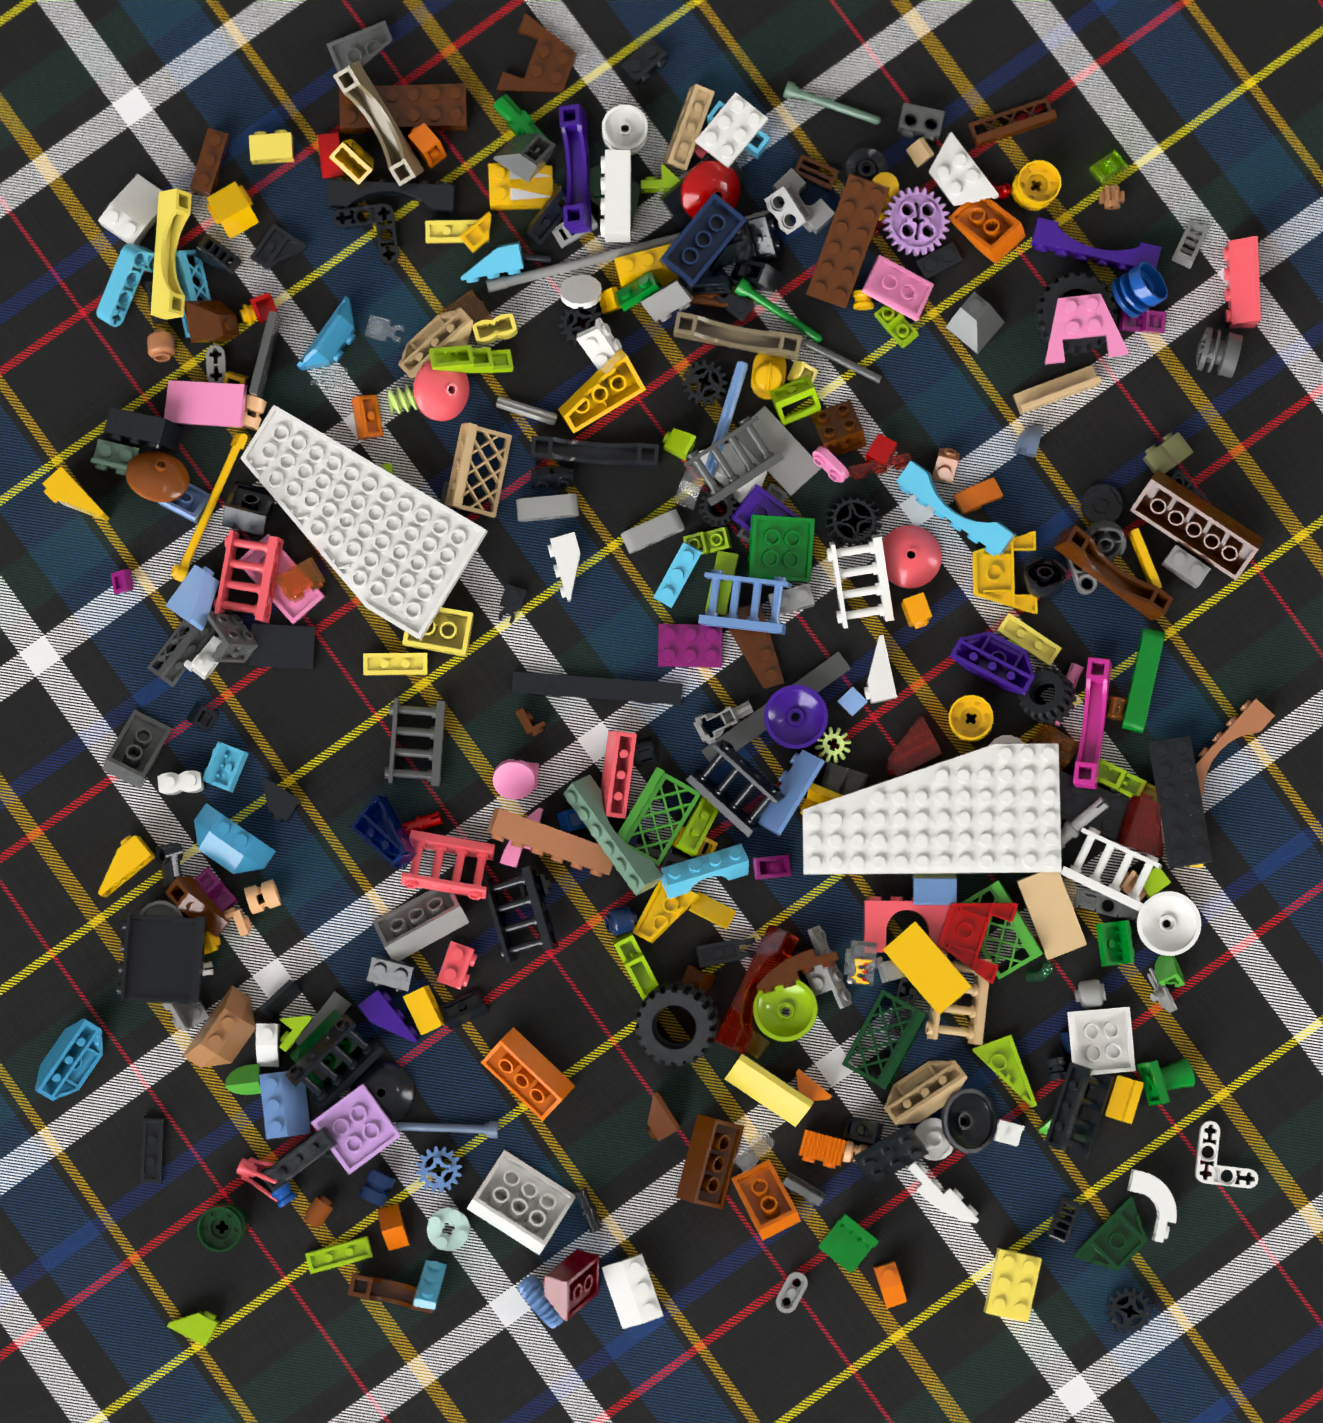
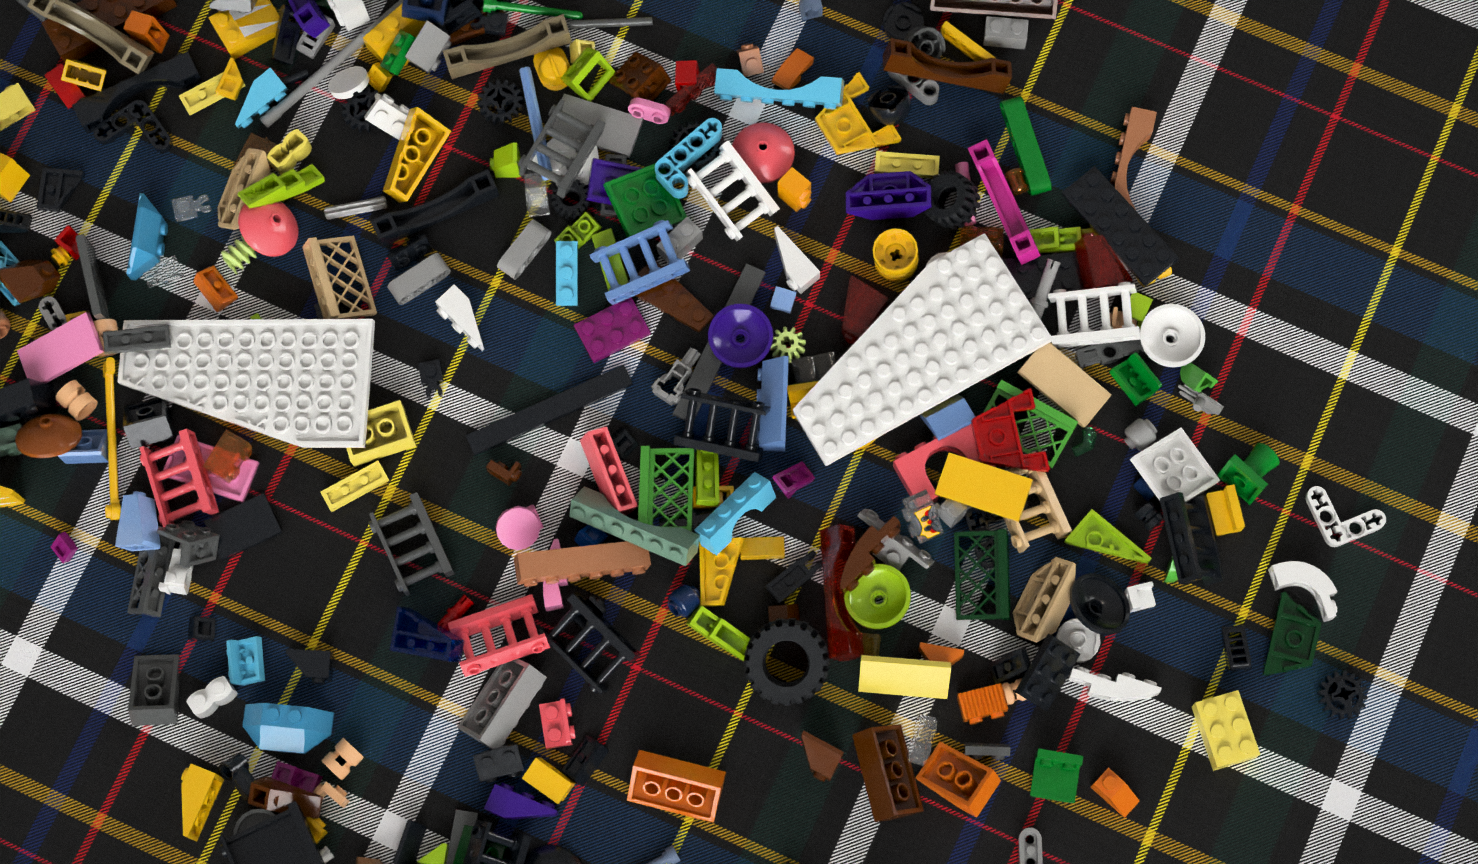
camera: 25 degrees left, 10 degrees down
(197, 457) = (79, 403): none -> light nougat wheel
(275, 432) = (136, 339): none -> dark grey tile
(843, 529) = (692, 154): none -> medium azure beam

